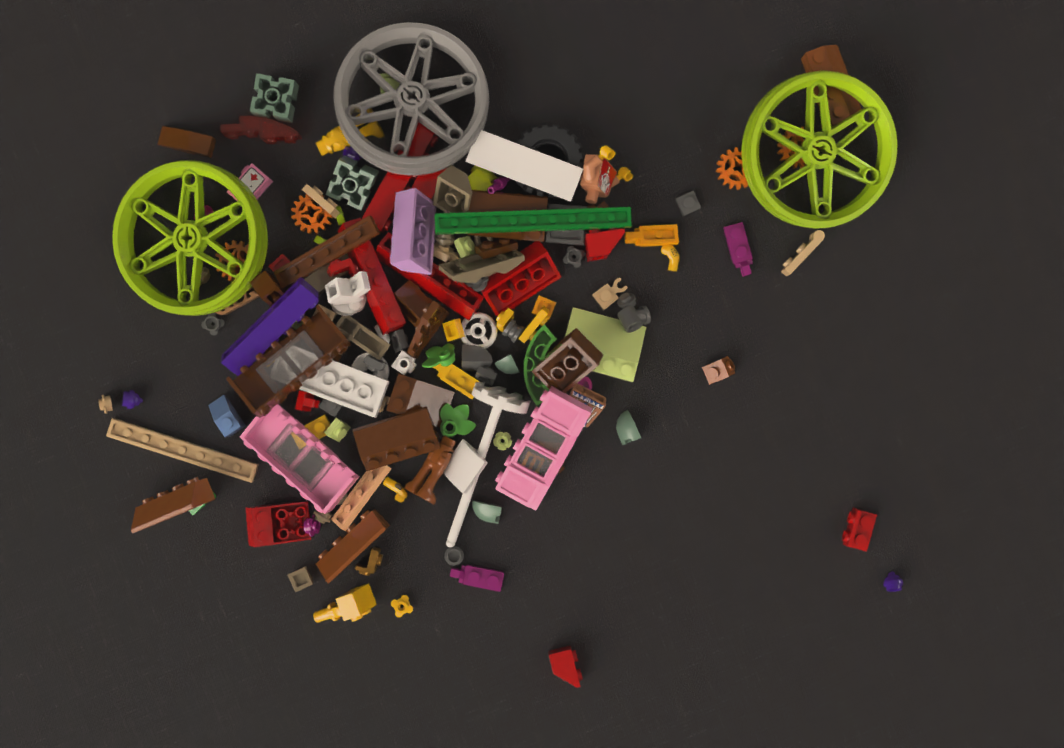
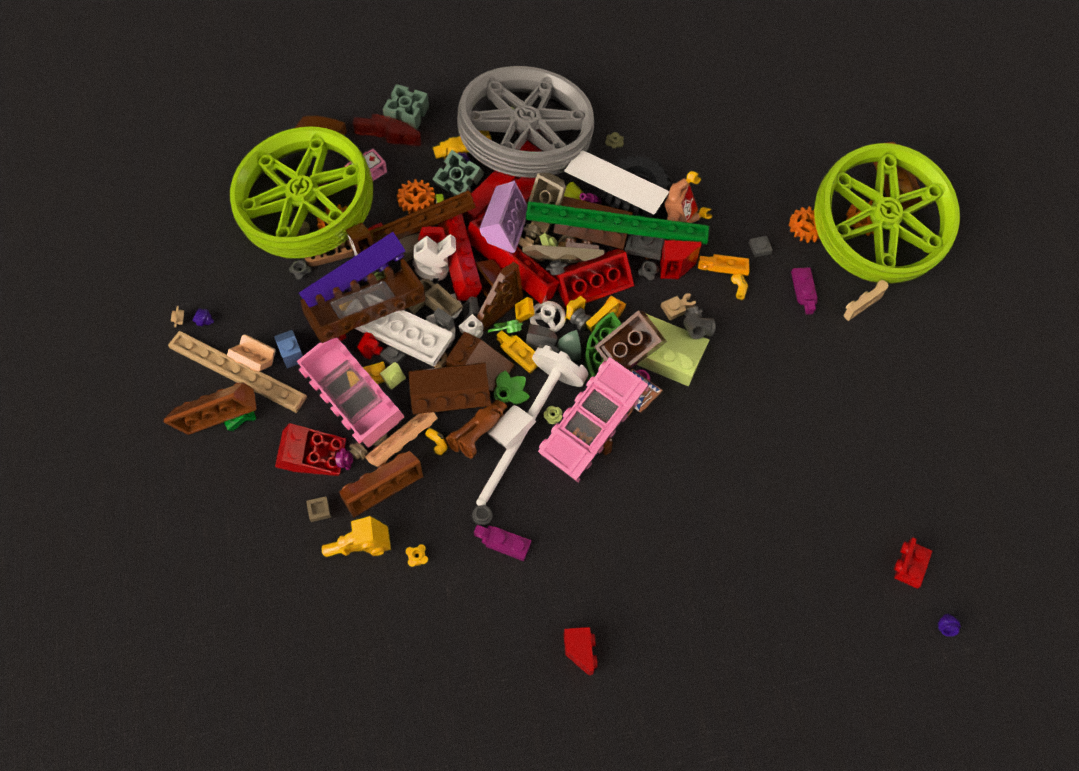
camera: 10 degrees right, 25 degrees down
(192, 433) = (252, 353): none -> light nougat bracket
(316, 195) = (427, 182): tan plate -> none
(374, 560) = (394, 509): pearl gold bracket -> none
(487, 511) = (525, 477): sand green brick -> none
(514, 96) = (614, 140): none -> olive plant
(626, 428) = (680, 425): sand green brick -> none
(719, 370) = (776, 386): bracket -> none

